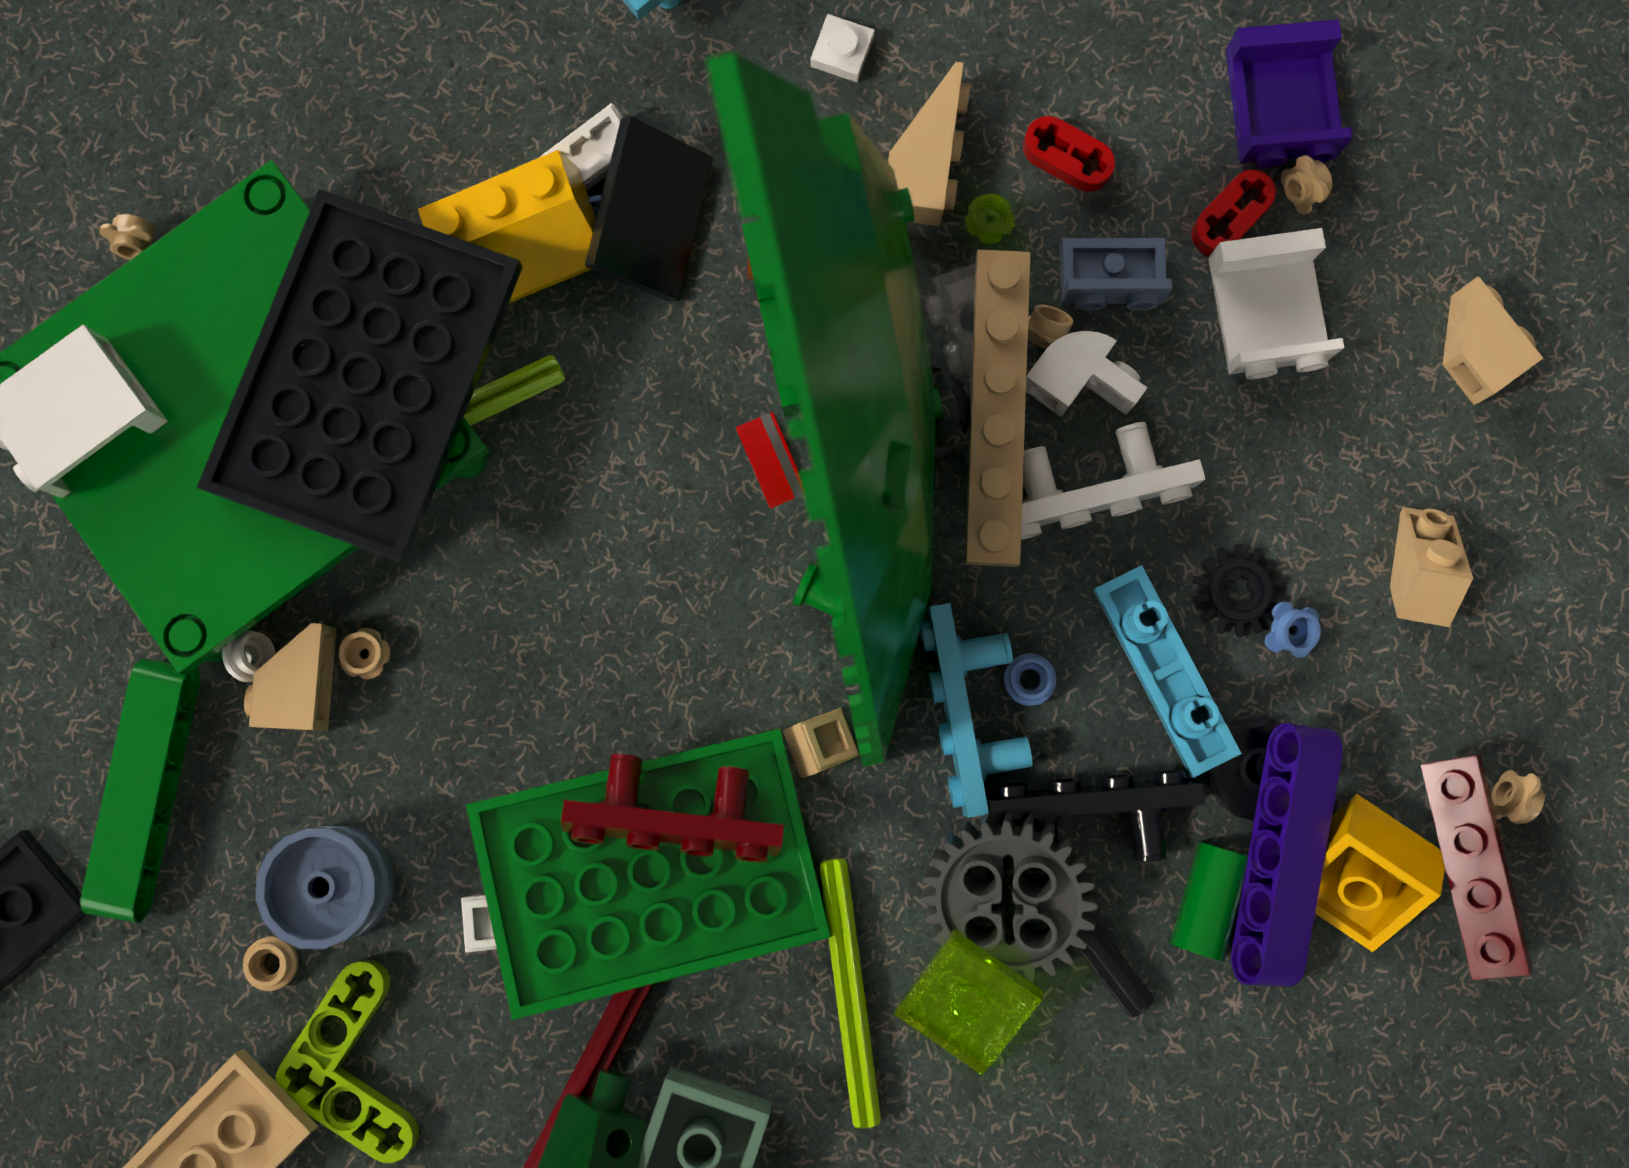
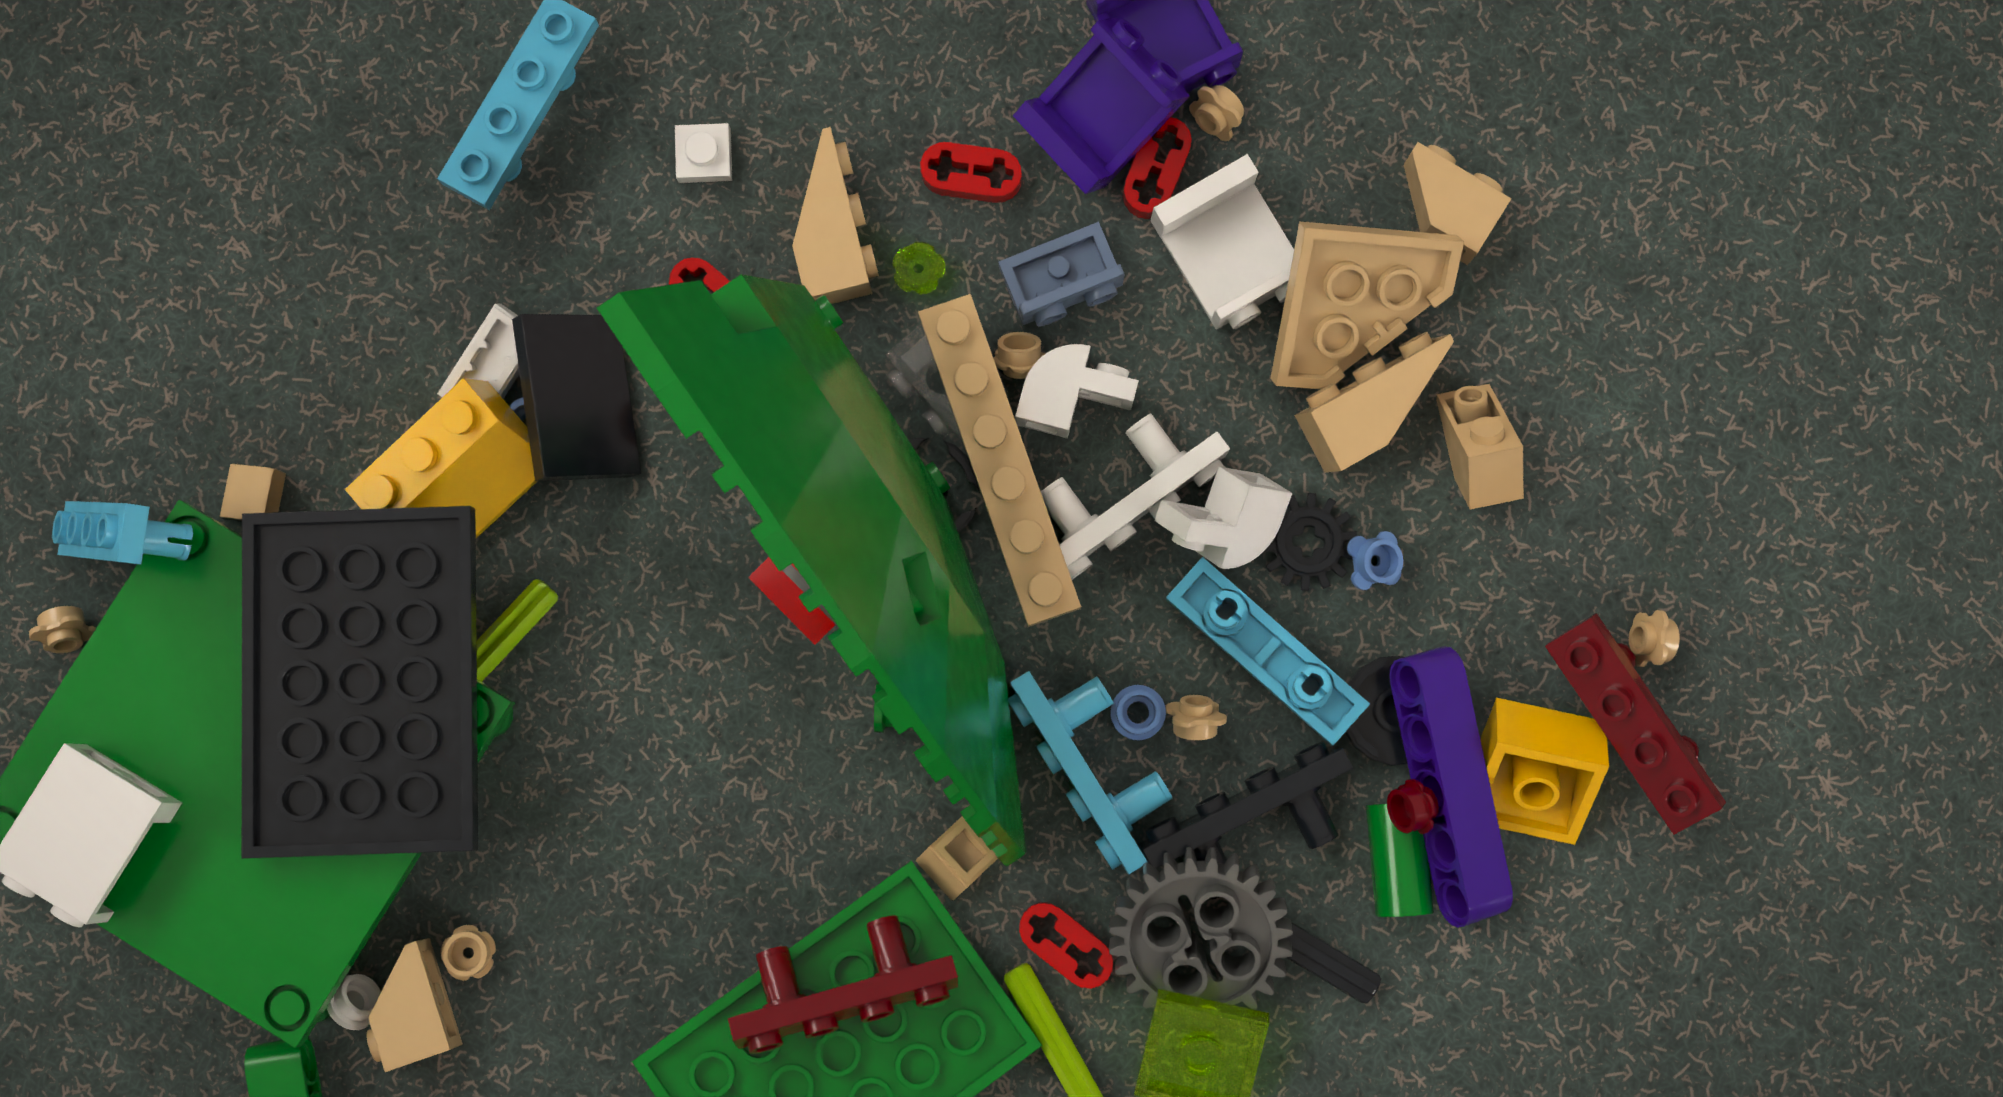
camera: 20 degrees left, 0 degrees up
(203, 163) = (116, 533): none -> medium azure plate
(342, 180) = (252, 491): none -> tan slope
(896, 850) = (1057, 956): none -> red beam
(1080, 704) = (1195, 717): none -> tan plate
(1185, 545) = (1236, 521): none -> white brick
(1212, 136) = (1103, 105): none -> dark purple panel
(1245, 860) = (1412, 807): none -> dark red plate
(1338, 498) = (1367, 413): none -> tan slope
(1369, 389) = (1355, 295): none -> tan plate

